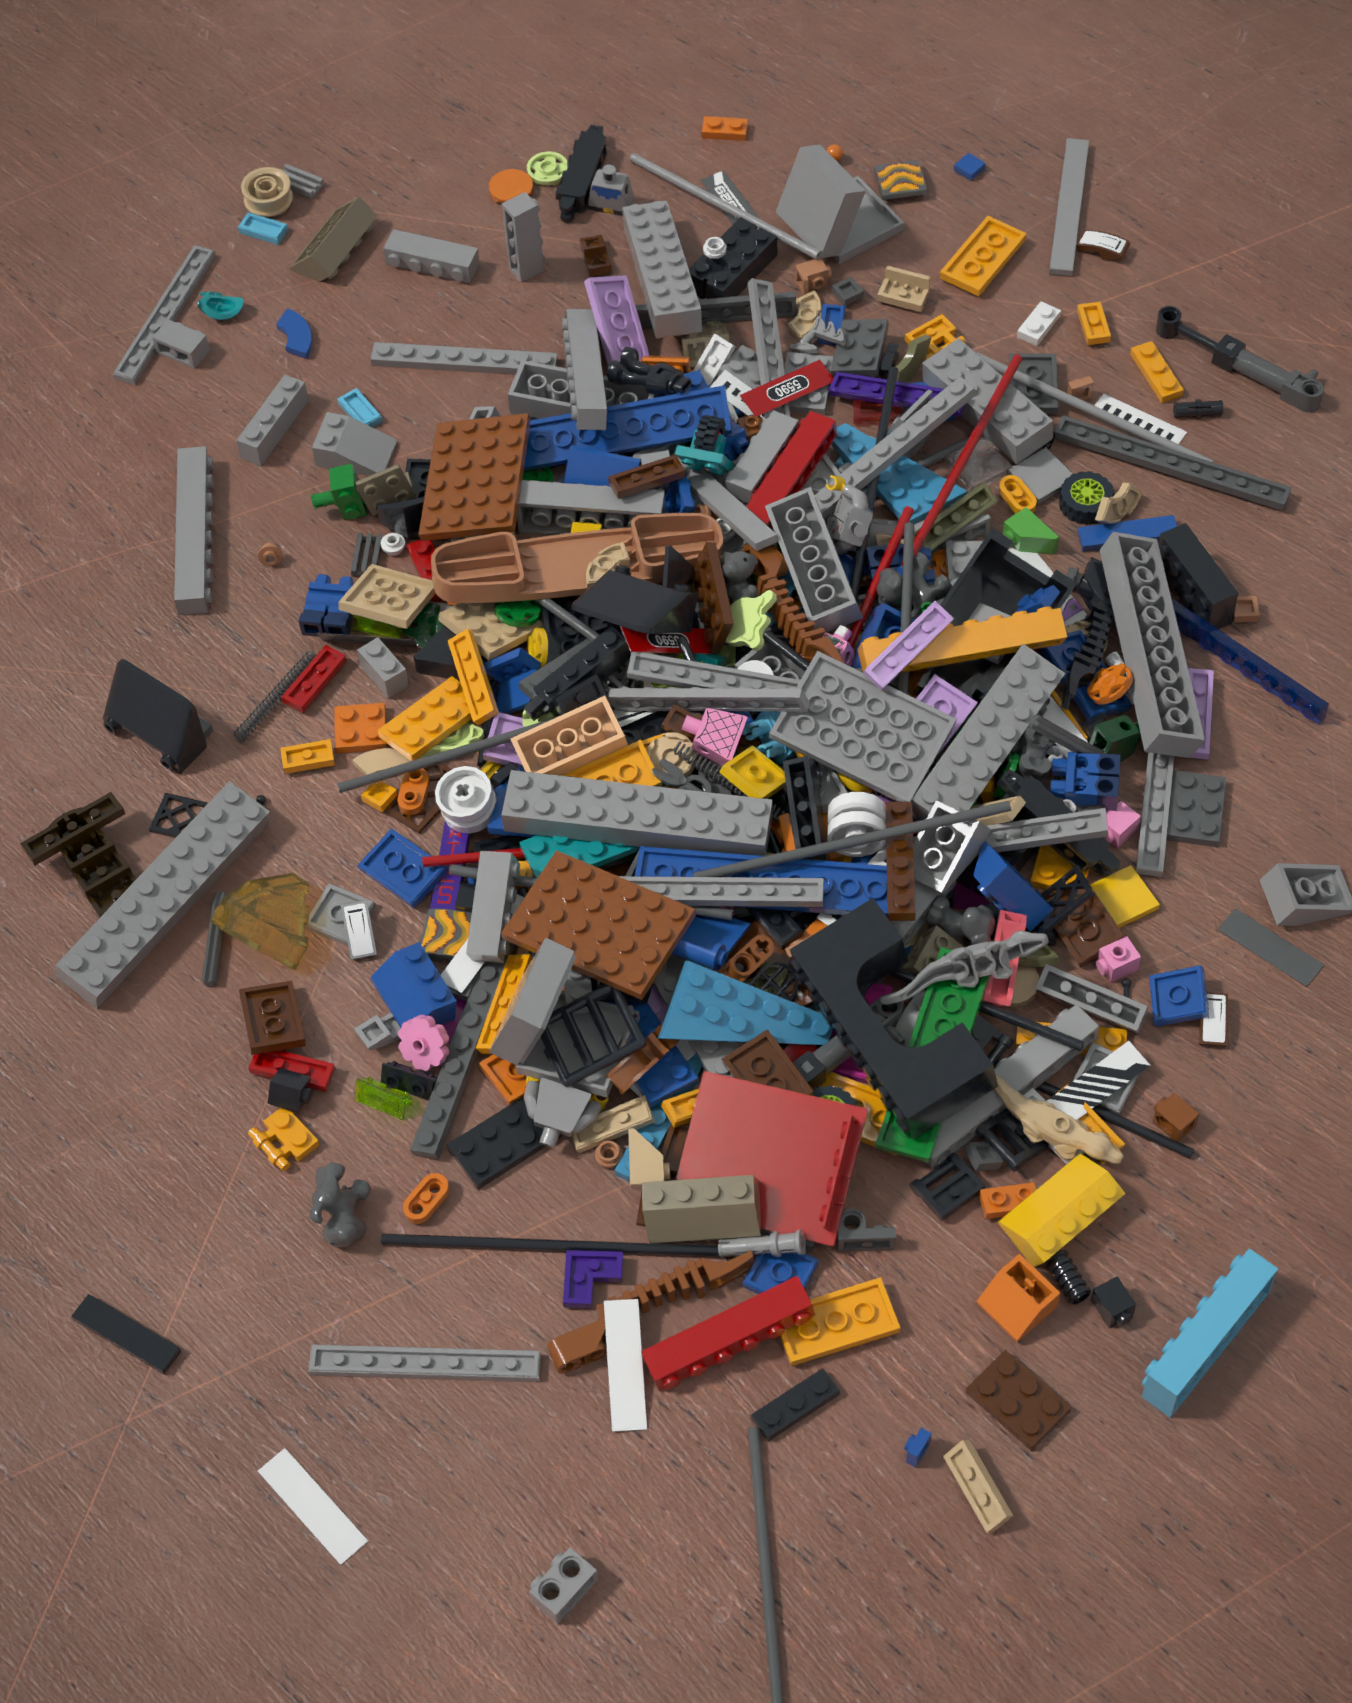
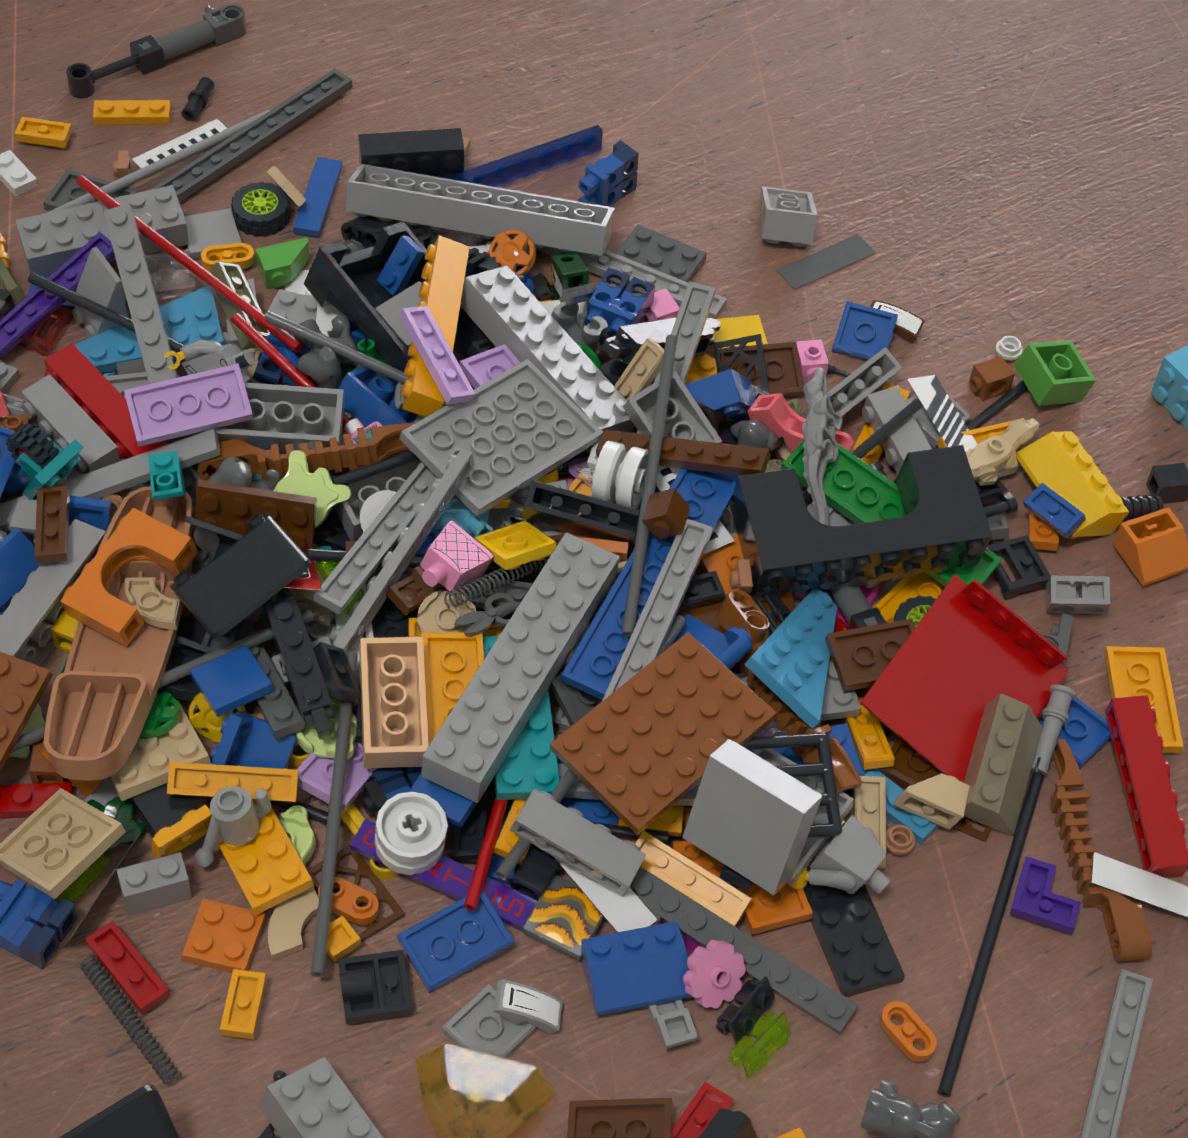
camera: 80 degrees left, 5 degrees down
(346, 829) = (374, 987): none -> black plate
(415, 661) = (183, 833): none -> light orange plate
(440, 687) = (232, 820): none -> light grey piece
(554, 639) = (231, 680): none -> blue tile
(589, 525) = (135, 539): none -> orange arch
(715, 525) = (166, 476): none -> teal slope
(787, 508) = (188, 404): none -> lavender plate
(816, 861) = (666, 513): none -> reddish brown brick
(926, 1239) = (1077, 594): none -> light grey brick
(1012, 1194) = (1054, 510): none -> blue plate
(1201, 1166) = (1054, 372): none -> bright green brick
(1229, 1121) = (1009, 348): none -> white plate
(1260, 733) = (610, 176): none -> blue hips

